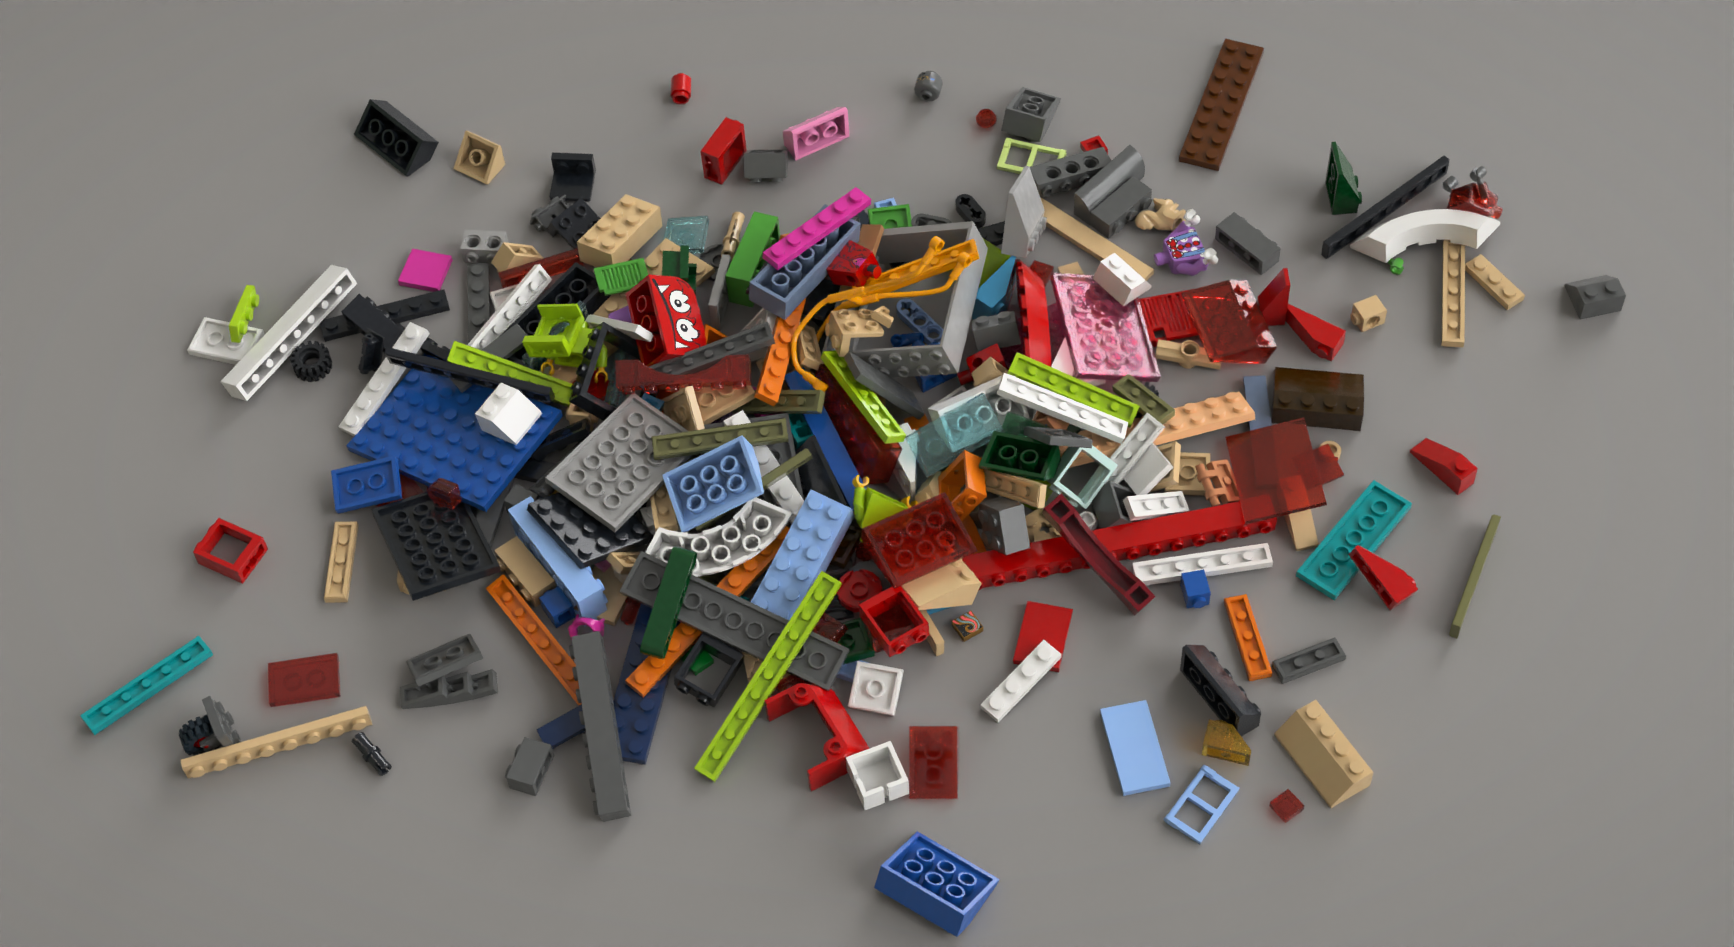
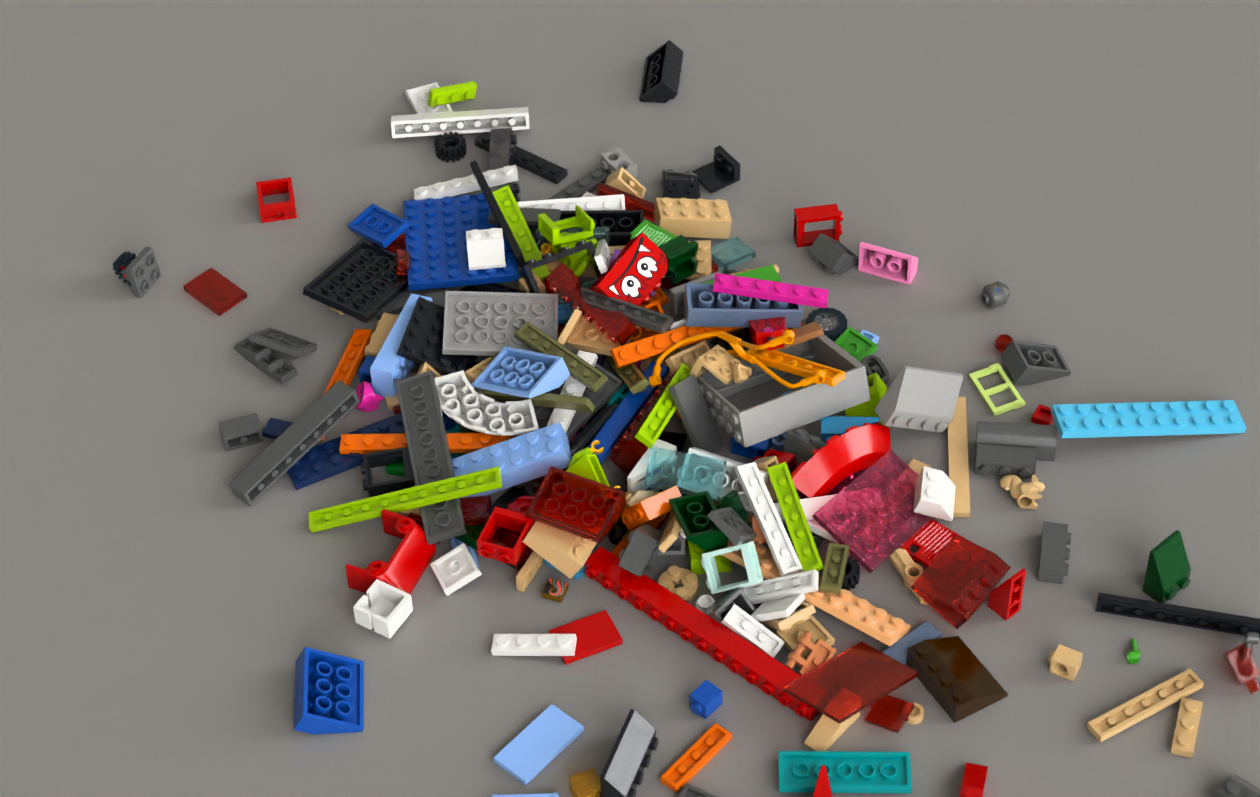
camera: 50 degrees right, 10 degrees down
(146, 685) = (149, 226): teal plate -> none
(275, 742) = (158, 306): tan plate -> none
(341, 562) = (316, 254): tan tile -> none
(371, 753) = (187, 354): black pin -> none
(372, 352) = (482, 159): black hinge -> none
(425, 270) = (574, 153): dark pink tile -> none
(479, 158) = (685, 121): tan slope -> none
(668, 603) = (406, 409): dark green beam -> none
(680, 88) = (851, 176): red brick -> none
(933, 762) = (425, 634): clear red slope -> none
(1043, 270) = (902, 451): clear red plate -> none
(1068, 172) = (995, 408): dark grey brick -> none
(1079, 536) = (666, 646): dark red arch -> none
(1169, 84) = (1147, 419): none -> medium azure plate
(1184, 249) = (1006, 518): torso -> none
(1212, 562) = (734, 693): white plate -> none
(1221, 105) = (1171, 465): reddish brown plate -> none
(1318, 335) = (1012, 644): red slope -> none
(1424, 228) = (1206, 666): white brick -> none

